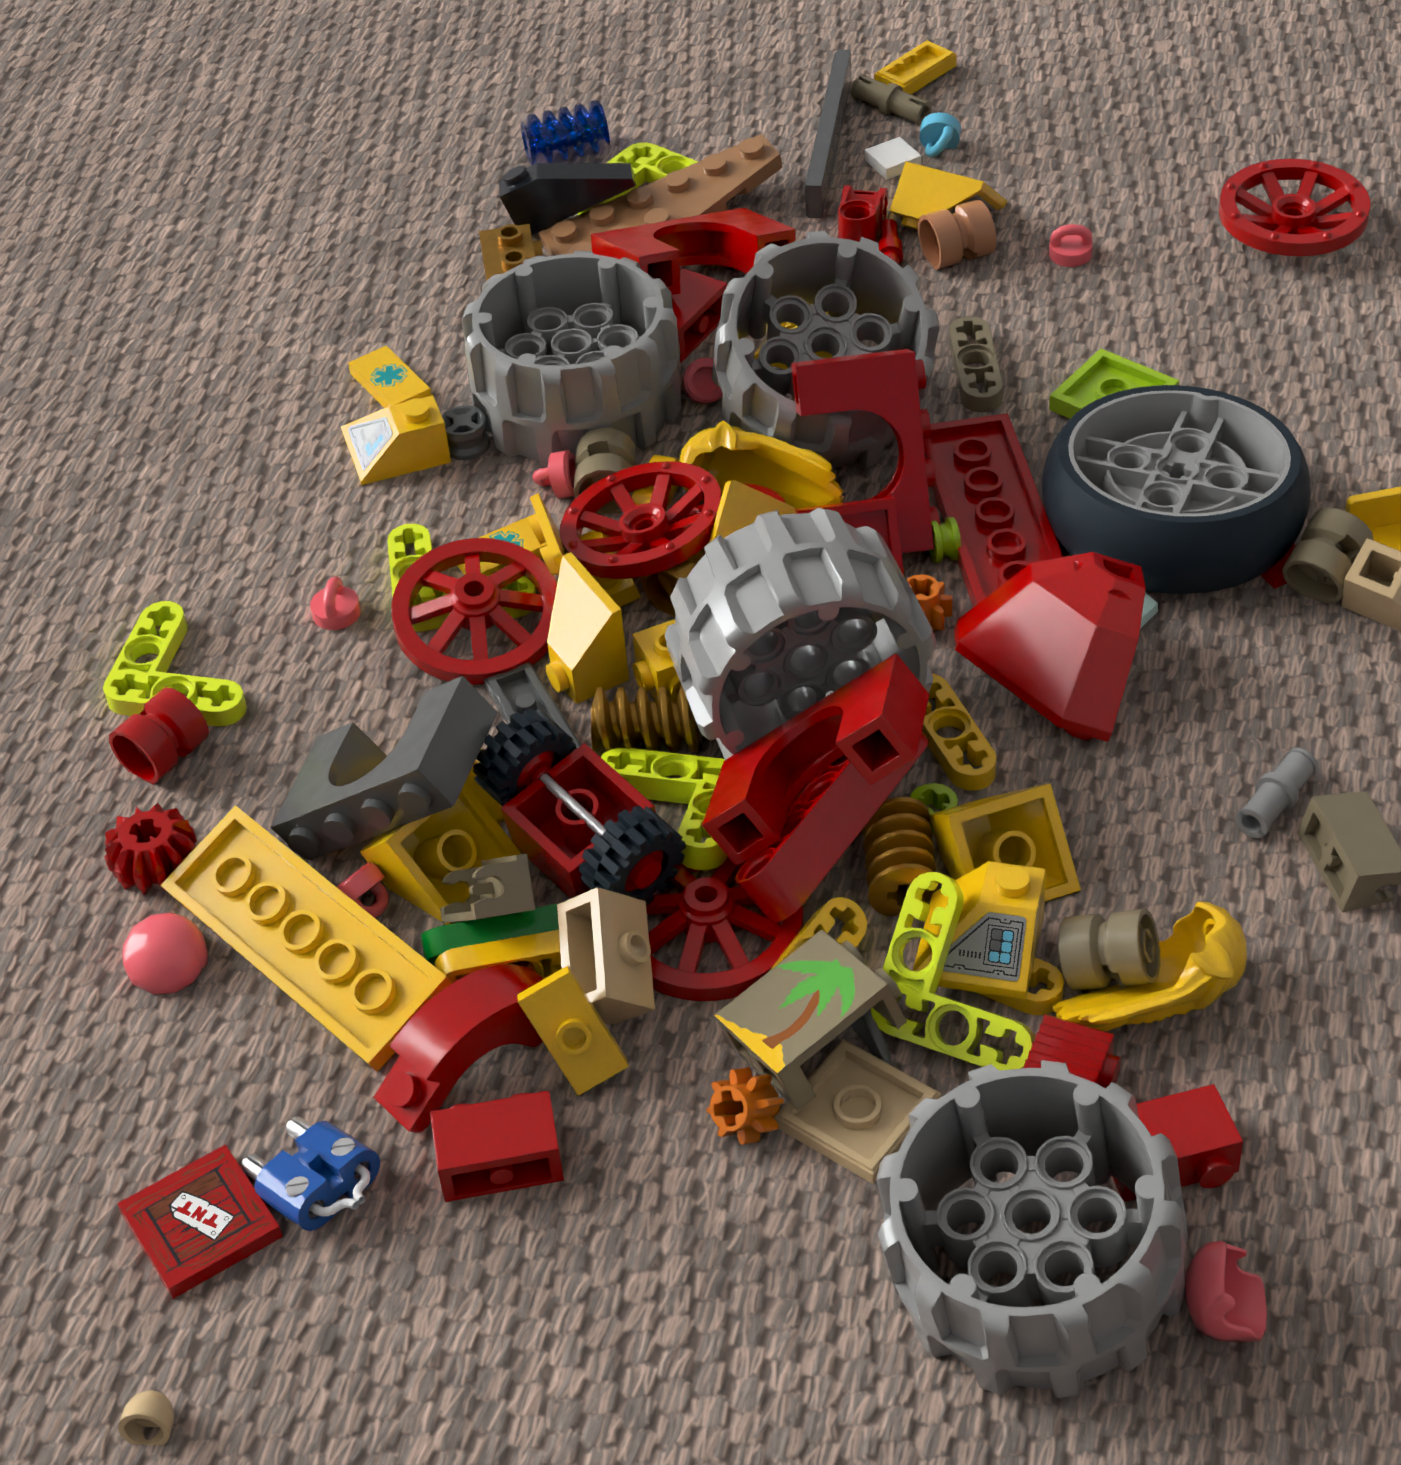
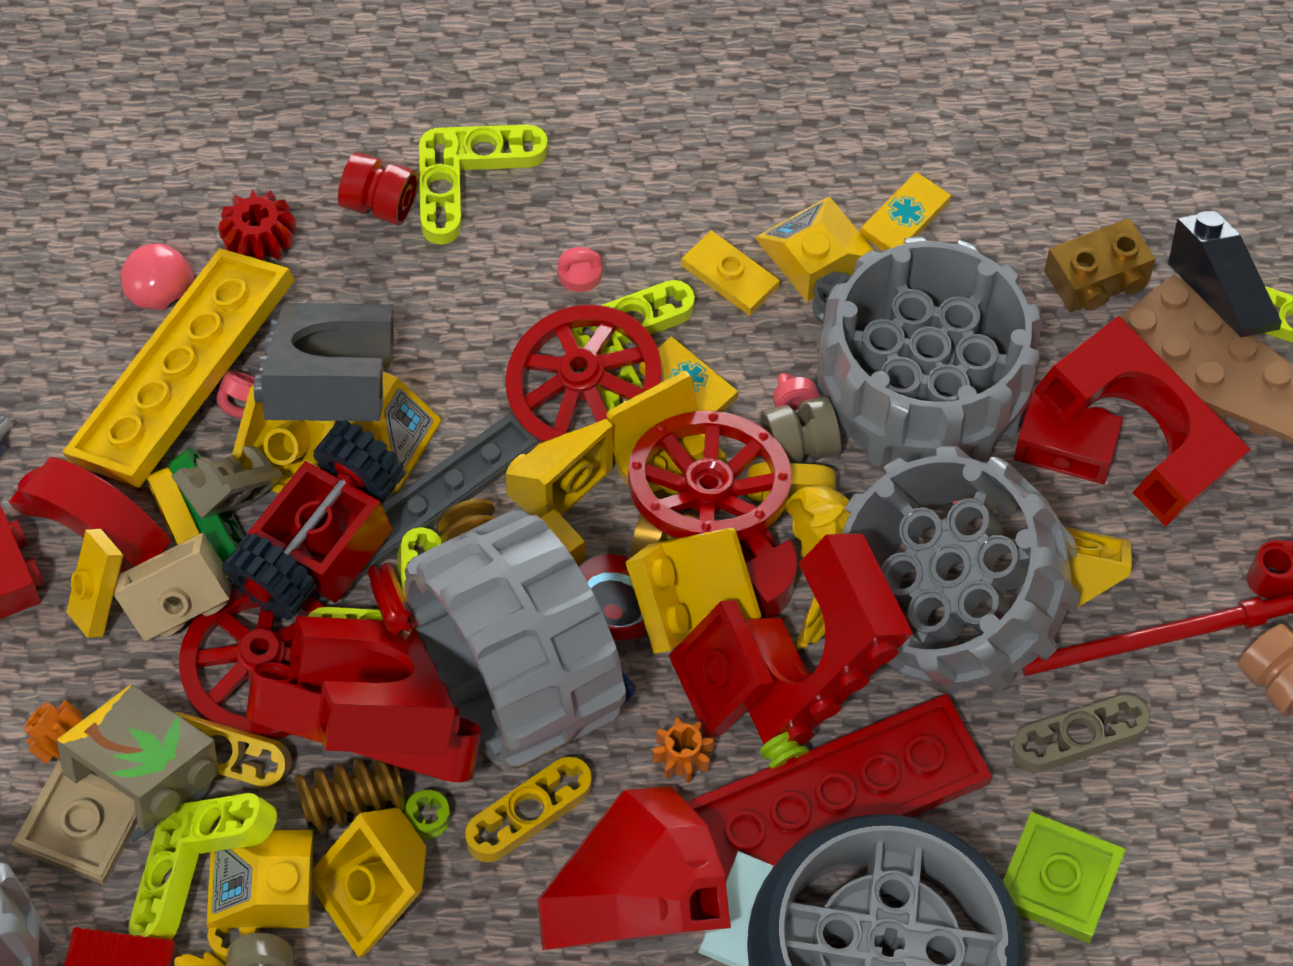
camera: 70 degrees right, 15 degrees up
(394, 503) = (730, 273): none -> yellow plate
(698, 767) = (390, 598): none -> red axle

